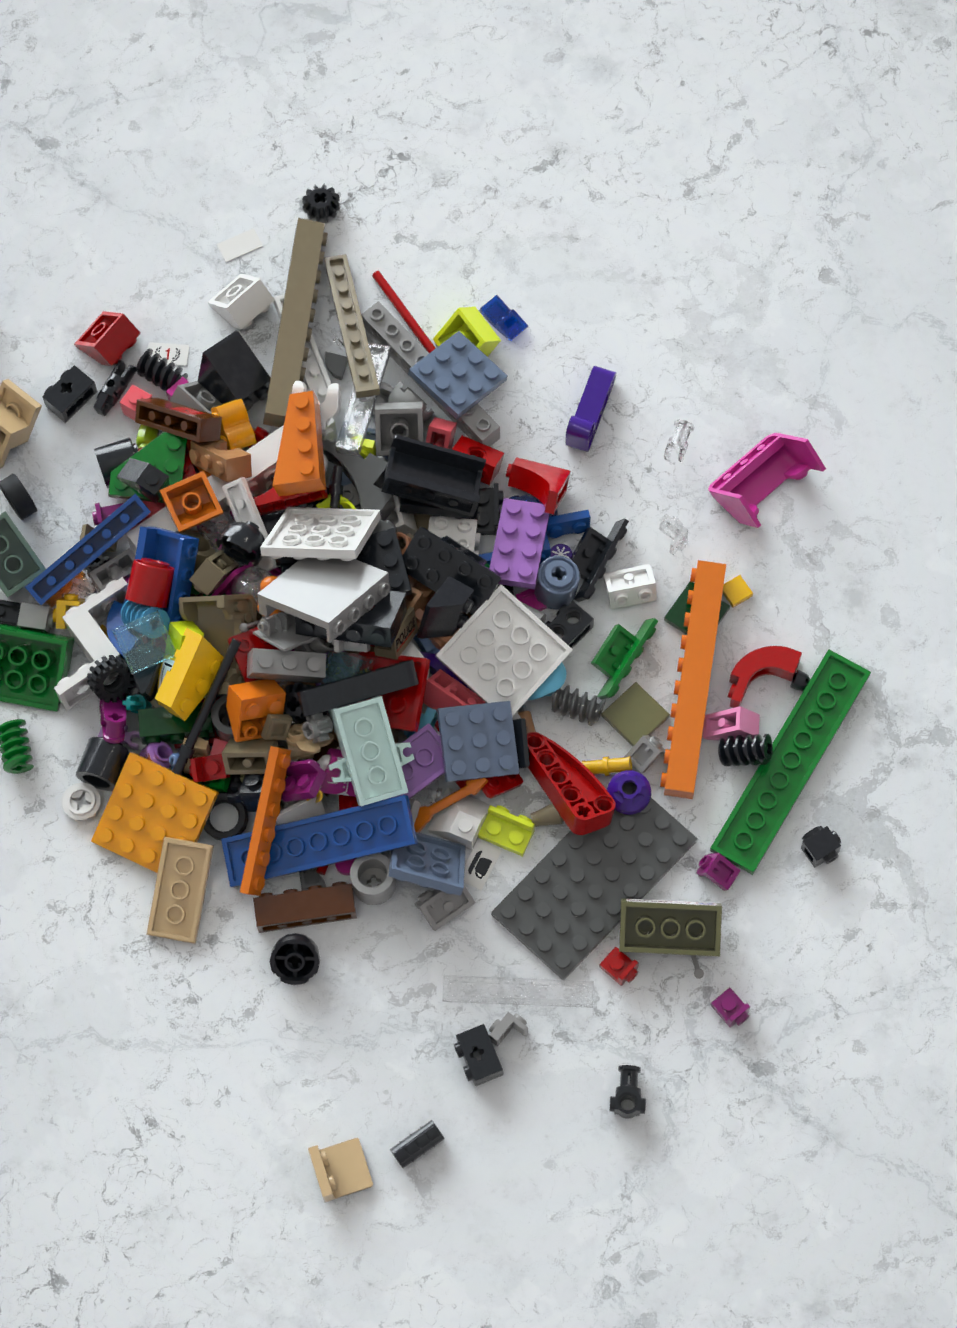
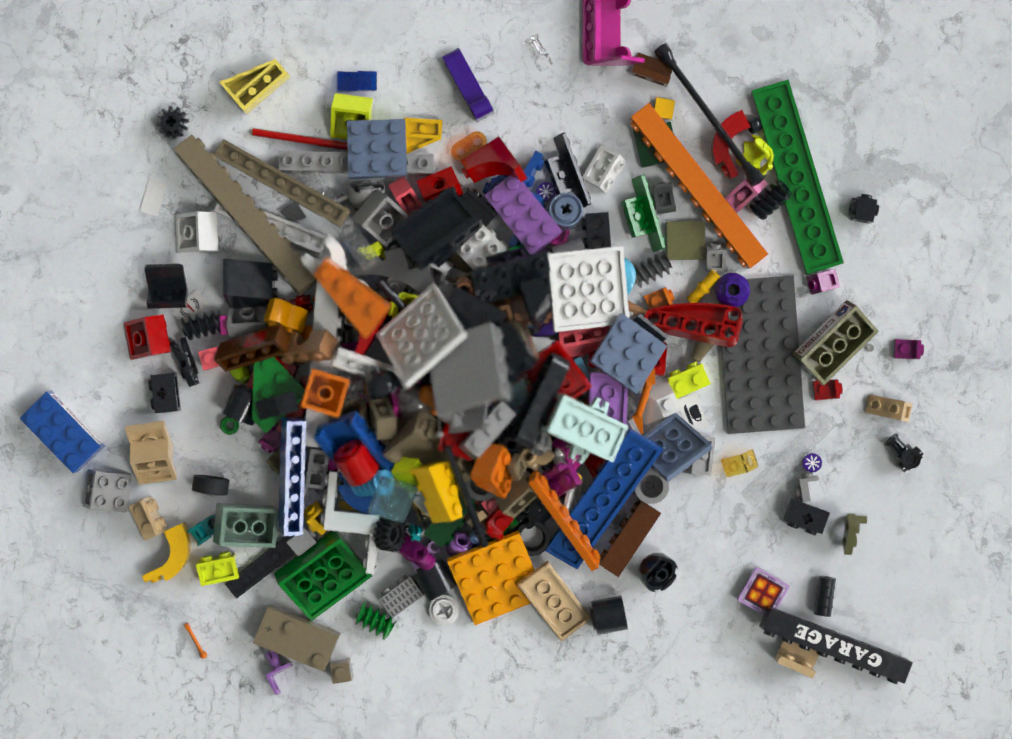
camera: 50 degrees left, 20 degrees up
(59, 749) = (401, 596): none -> light grey brick
(86, 466) = (223, 425): none -> green plate
(170, 313) = (166, 286): none -> black bracket
(211, 951) = (608, 615): none -> black piece
(366, 1081) = (762, 590): none -> tile
(378, 1195) = (835, 644): none -> black brick
(419, 239) = (255, 84): none -> light yellow wedge
(470, 945) = (739, 463): none -> clear yellow bracket
(505, 1102) = (852, 527): none -> olive plate
(509, 406) = (422, 132): none -> yellow wing
(536, 1016) = (812, 462): none -> dark purple tile
(537, 453) = (468, 145): none -> clear orange plate
(561, 736) = (659, 298): none -> orange bracket
(655, 658) = (664, 198): none -> dark grey bracket
(660, 1041) = (889, 408): none -> tan bracket
(751, 707) = (752, 174): none -> black hose
(760, 551) = (652, 70): none -> reddish brown panel
(774, 706) = (756, 152): none -> neon yellow helmet

